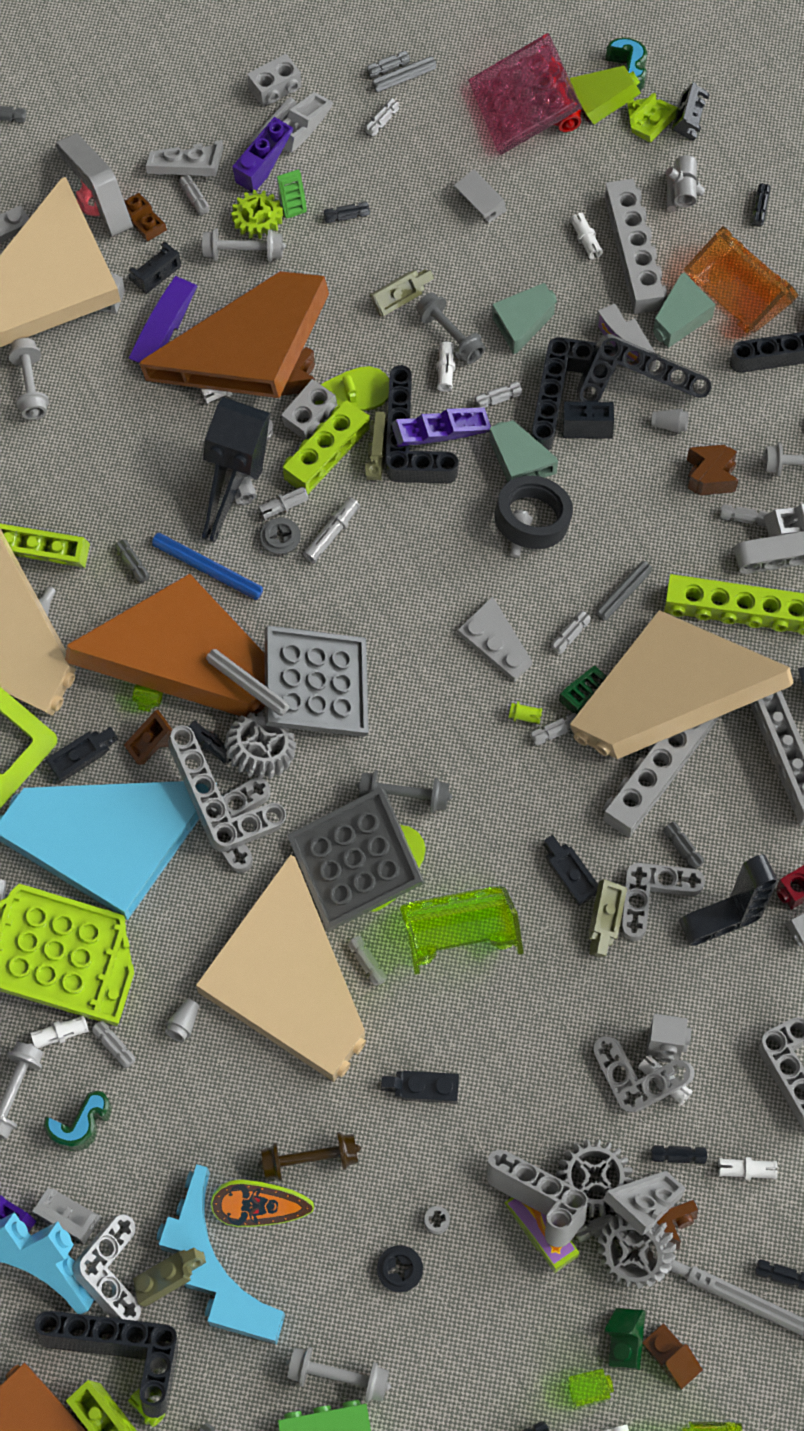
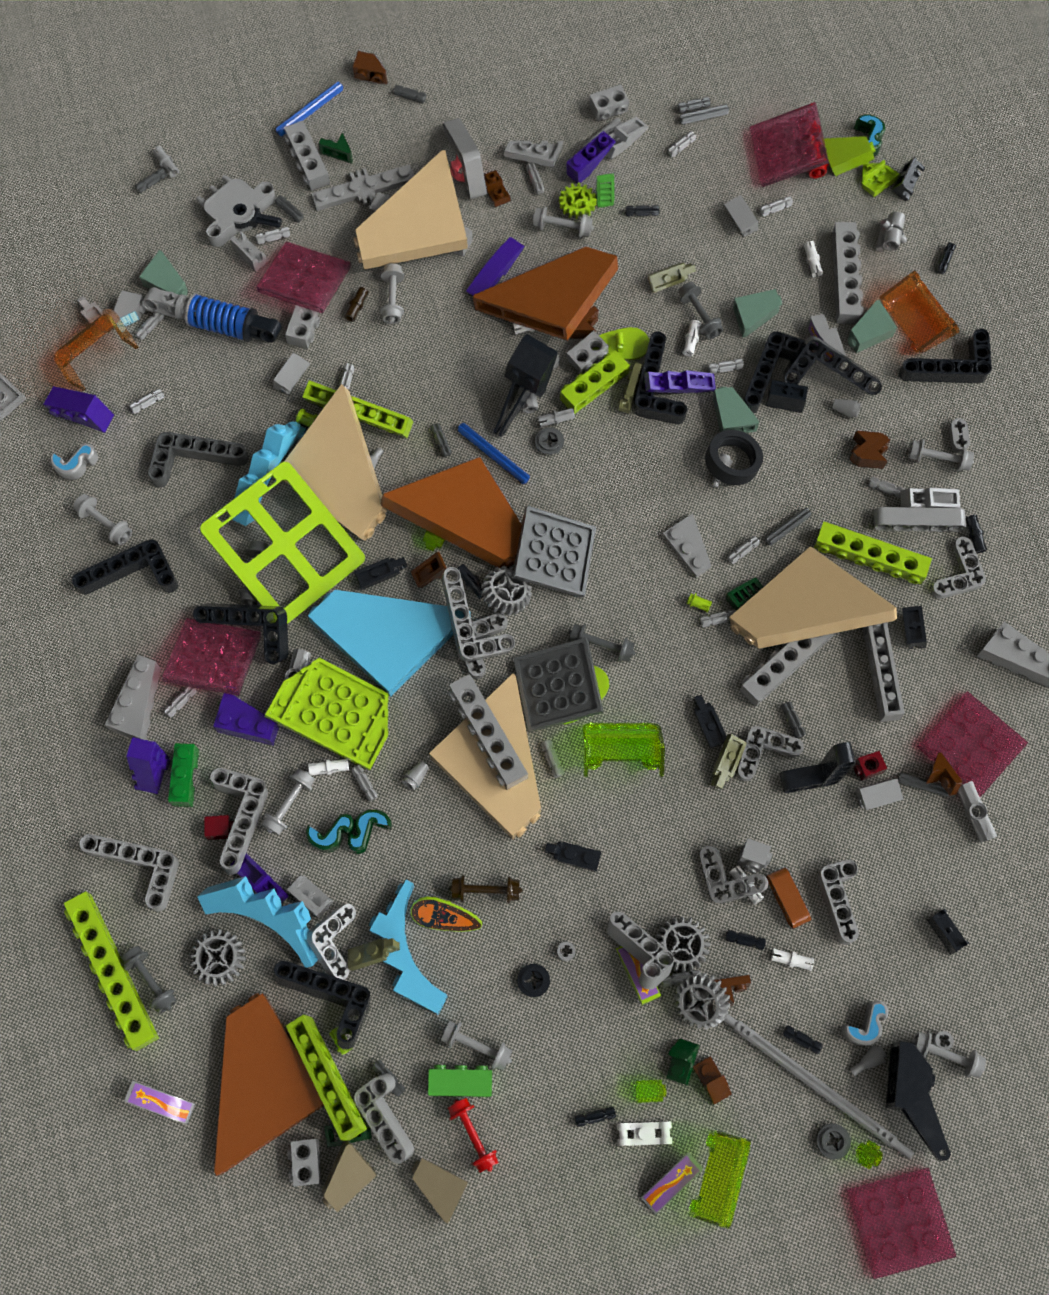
camera: 10 degrees right, 5 degrees up
(124, 1104) = (364, 825): none -> dark green animal
(156, 269) = (497, 229): black hinge -> none
(232, 884) = (467, 687): none -> light grey brick
(247, 682) = (505, 544): light grey axle -> none
(338, 521) = (593, 437): light grey pin -> none
(523, 176) = (776, 206): none -> light grey axle
(645, 1200) = (715, 968): light grey wing -> none
(726, 1086) = (788, 898): none -> dark orange beam

